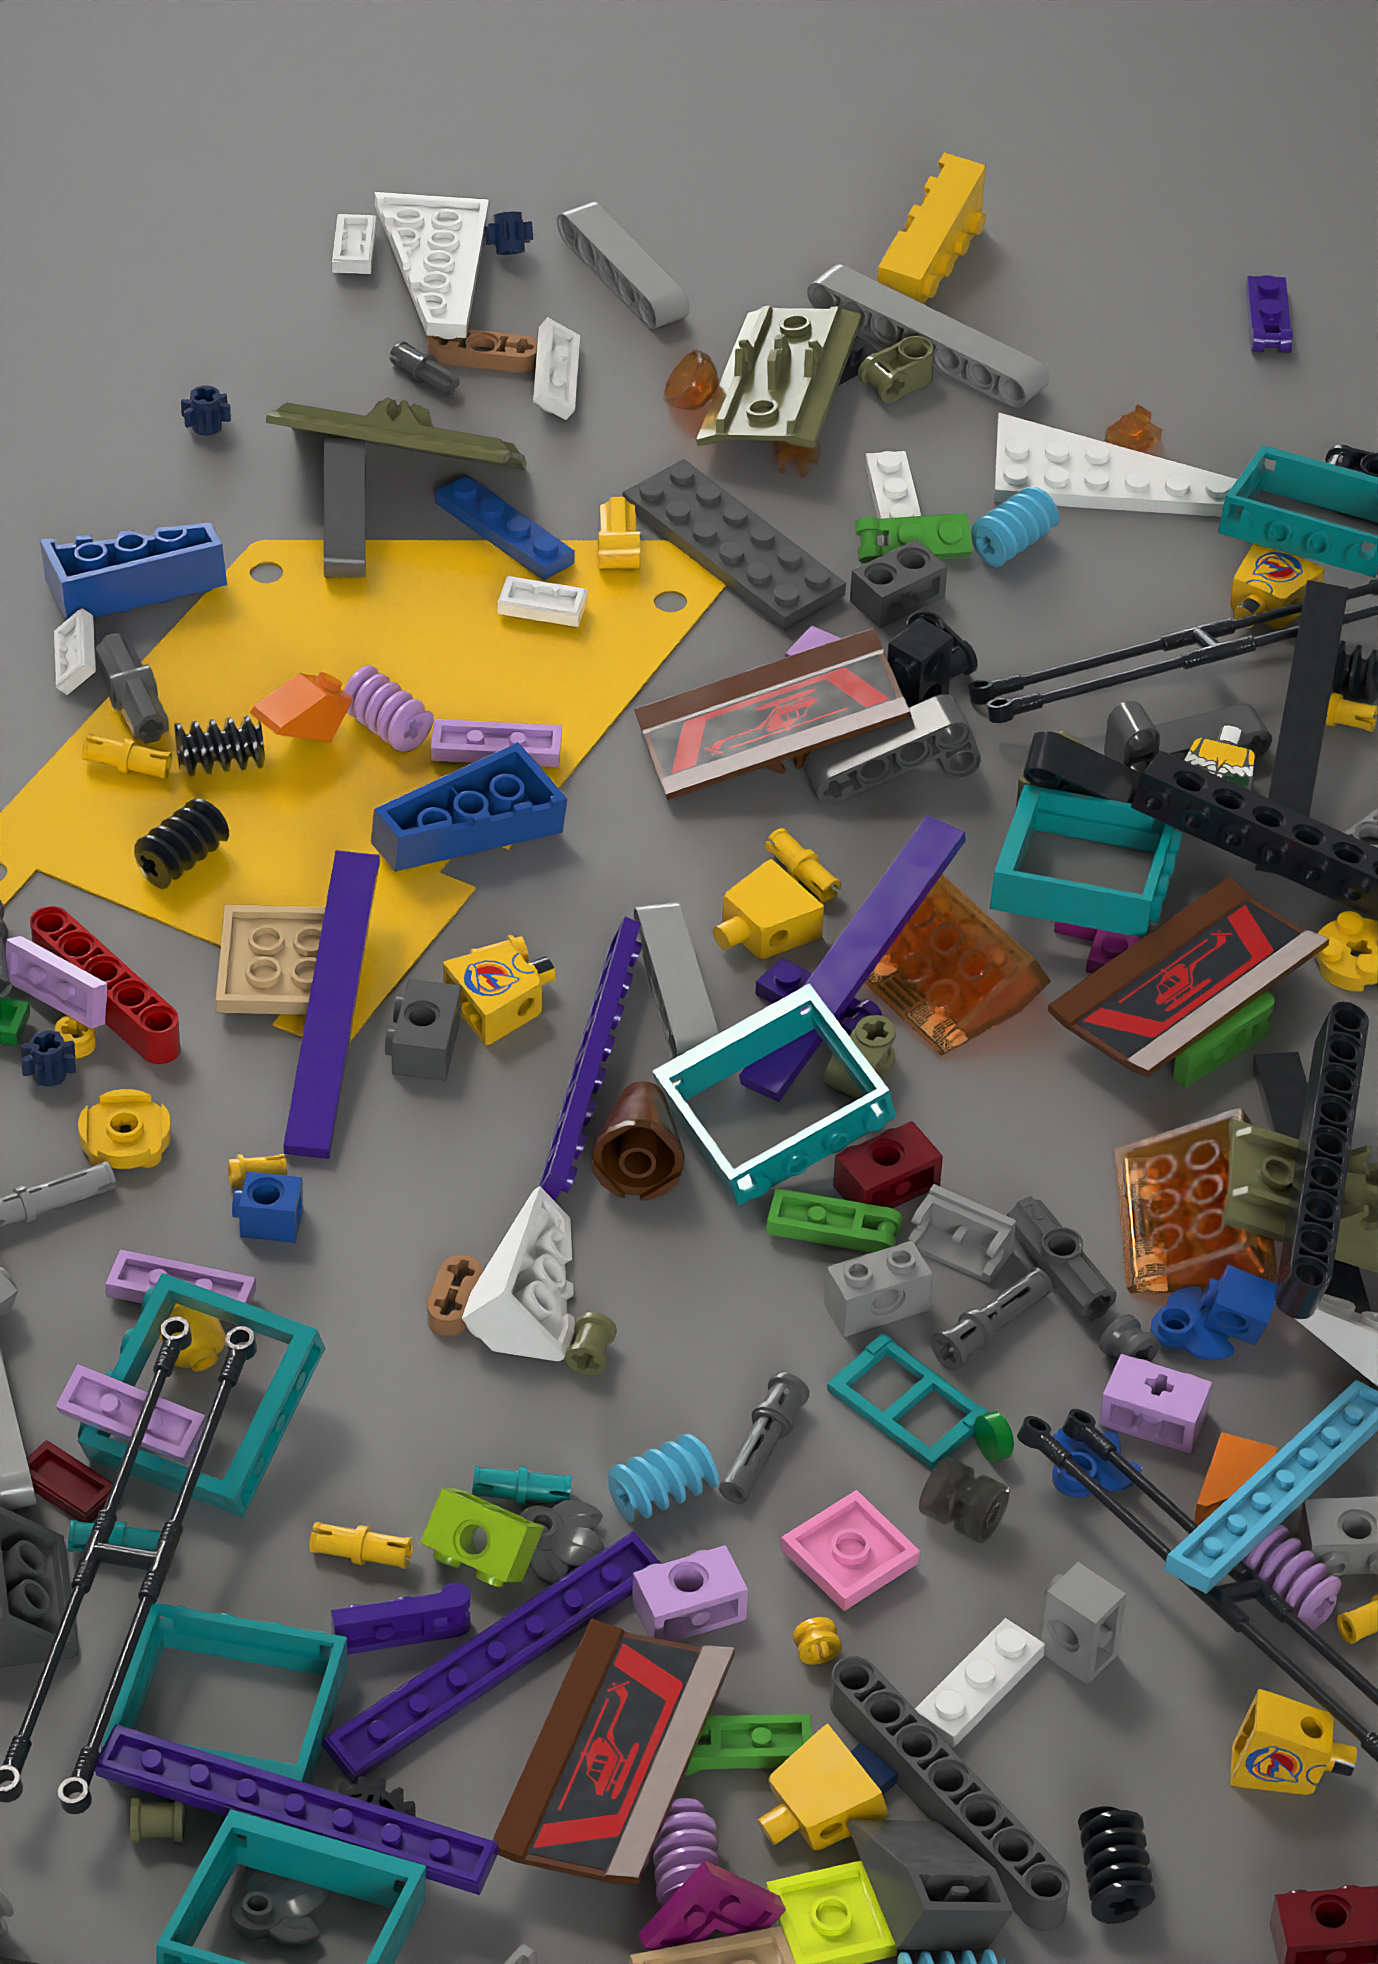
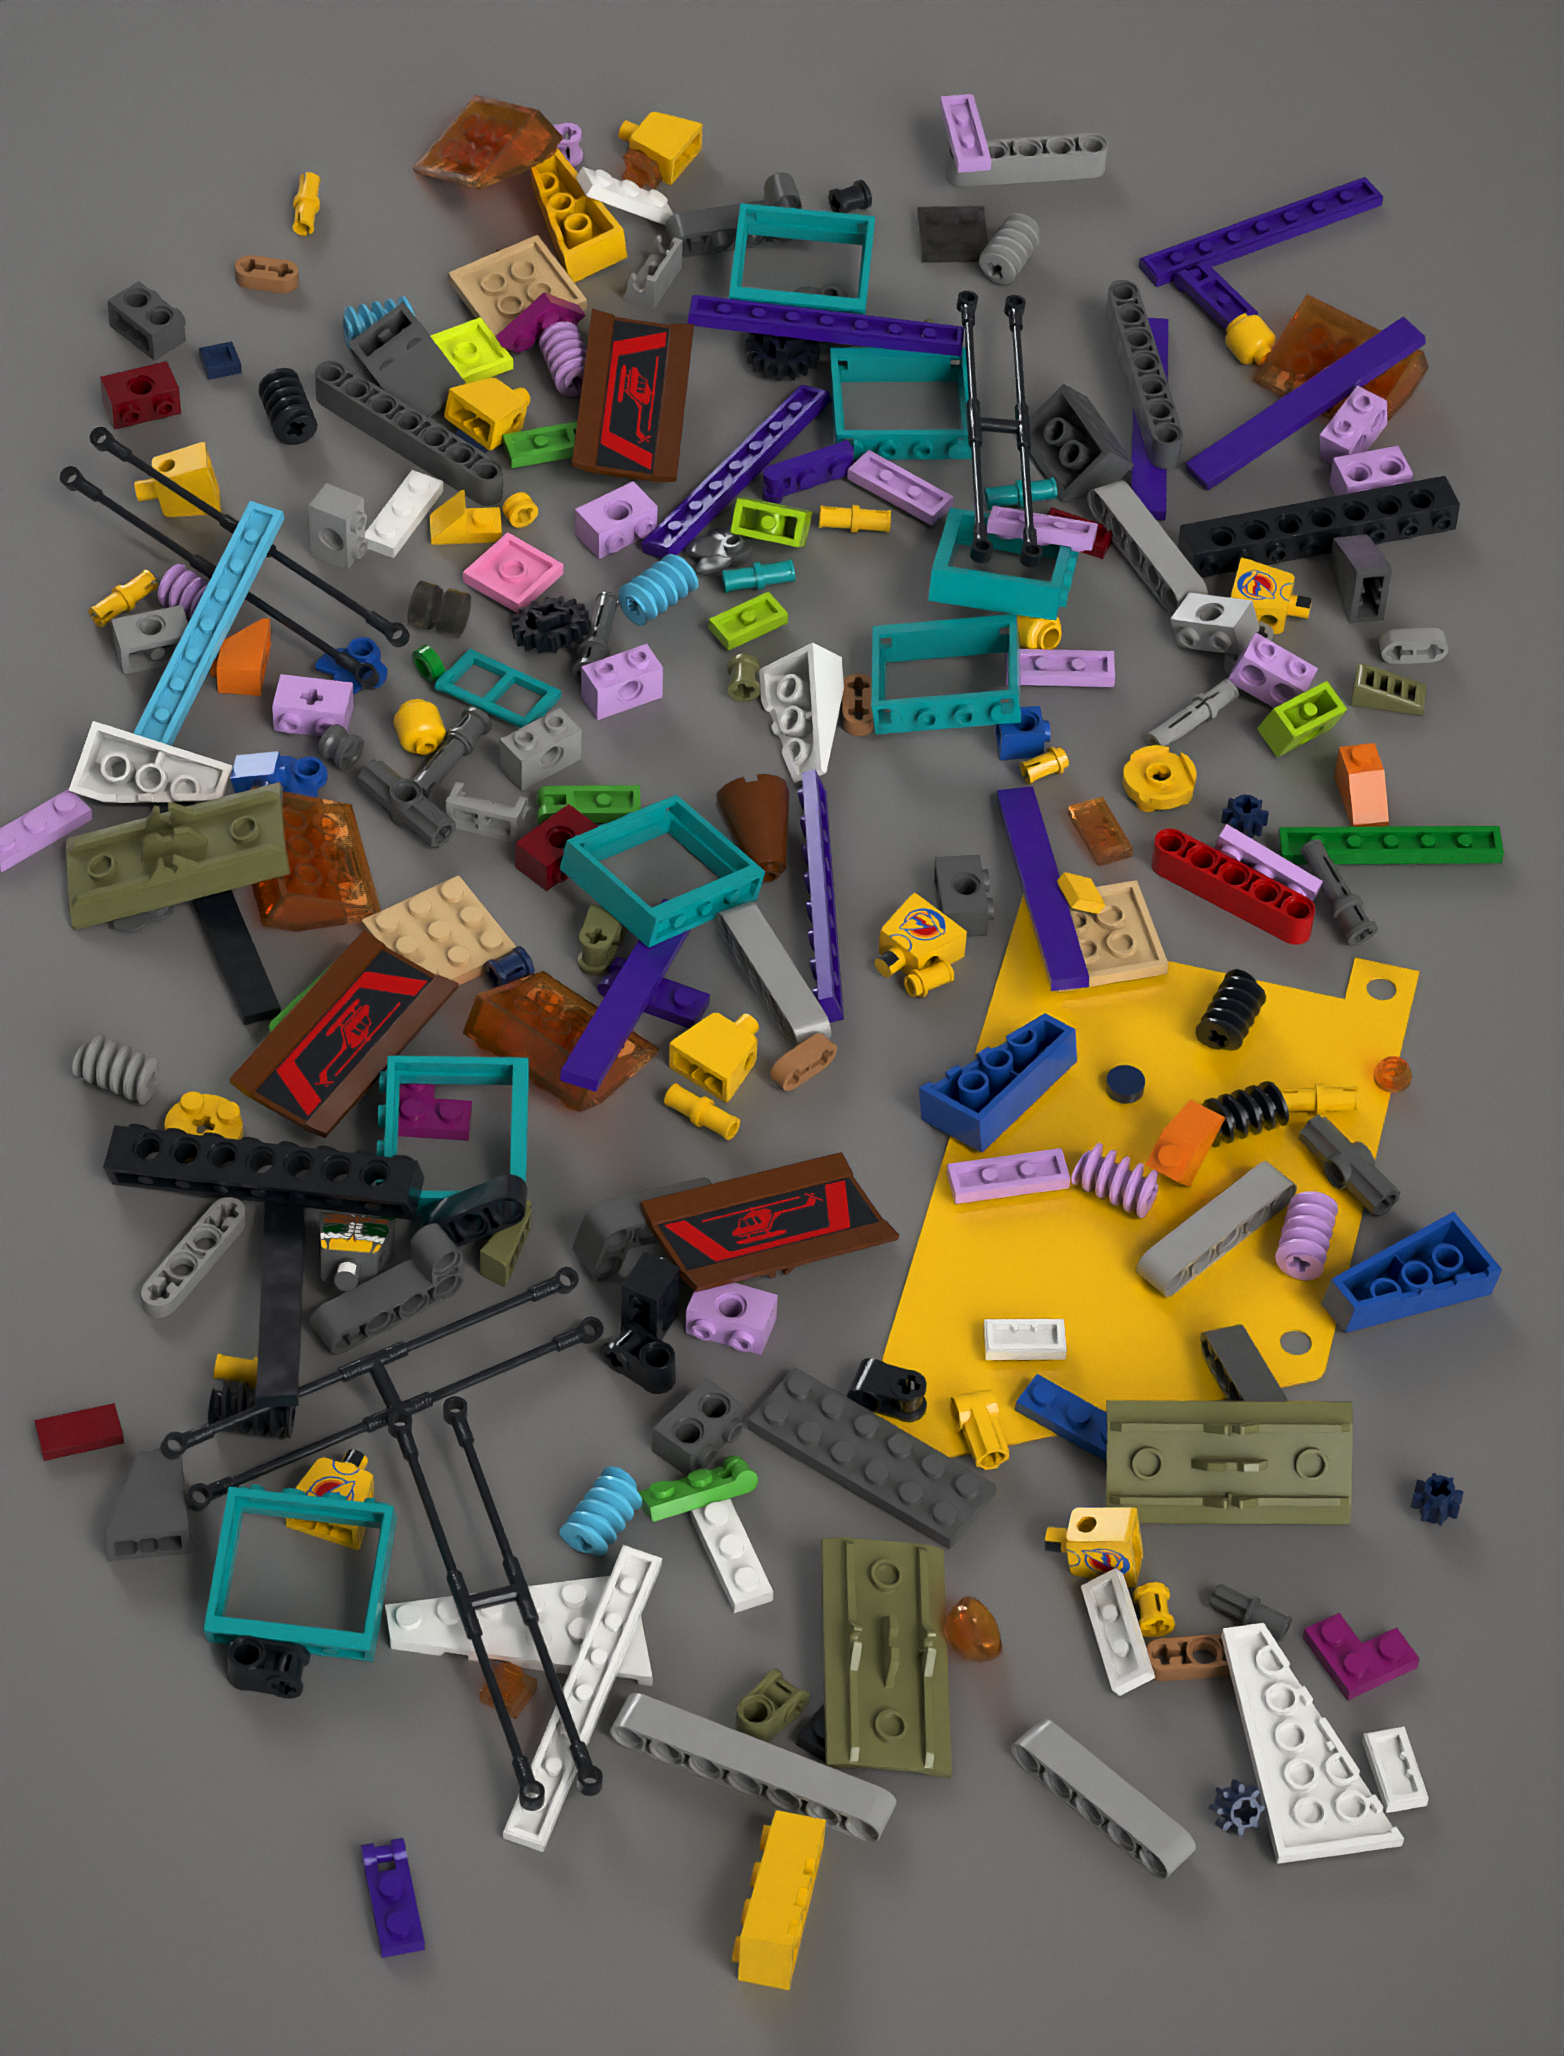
camera: 165 degrees right, 5 degrees up
(33, 768) = (1392, 1074): none -> clear orange plate
(74, 651) = (1416, 1192): white plate -> none
(212, 628) = (1306, 1235): none -> lavender piece
(226, 1080) = (1100, 831): none -> clear orange plate
(278, 1576) = (900, 487): none -> lavender plate
(294, 971) = (1081, 893): none -> yellow tile
(321, 646) = (1216, 1228): none -> light grey beam
(327, 815) = (1125, 1084): none -> dark blue tile
(345, 322) = (1359, 1665): none -> magenta plate
(376, 1202) = (945, 640): none -> teal window
(520, 378) = (1154, 1609): none -> yellow bush
(545, 415) = (1100, 1542): none -> yellow torso
(557, 1423) = (748, 621): none -> lime plate
(686, 884) = (803, 1061): none -> medium nougat beam
(701, 579) = (885, 1388): none -> black piece
(744, 1356) = (621, 681): none -> lavender brick
(809, 1433) = (550, 624): none -> black gear
(901, 1647) = (461, 525): none -> yellow slope
(979, 1046) = (509, 968): none -> dark blue bush
(1025, 1345) = (419, 725): none -> yellow head
(1051, 1108) = (442, 931): none -> tan plate
(1065, 402) = (586, 1691): none -> white tile
(1141, 606) = (516, 1591): none -> black bar
(1322, 1161) = (209, 828): black beam -> none

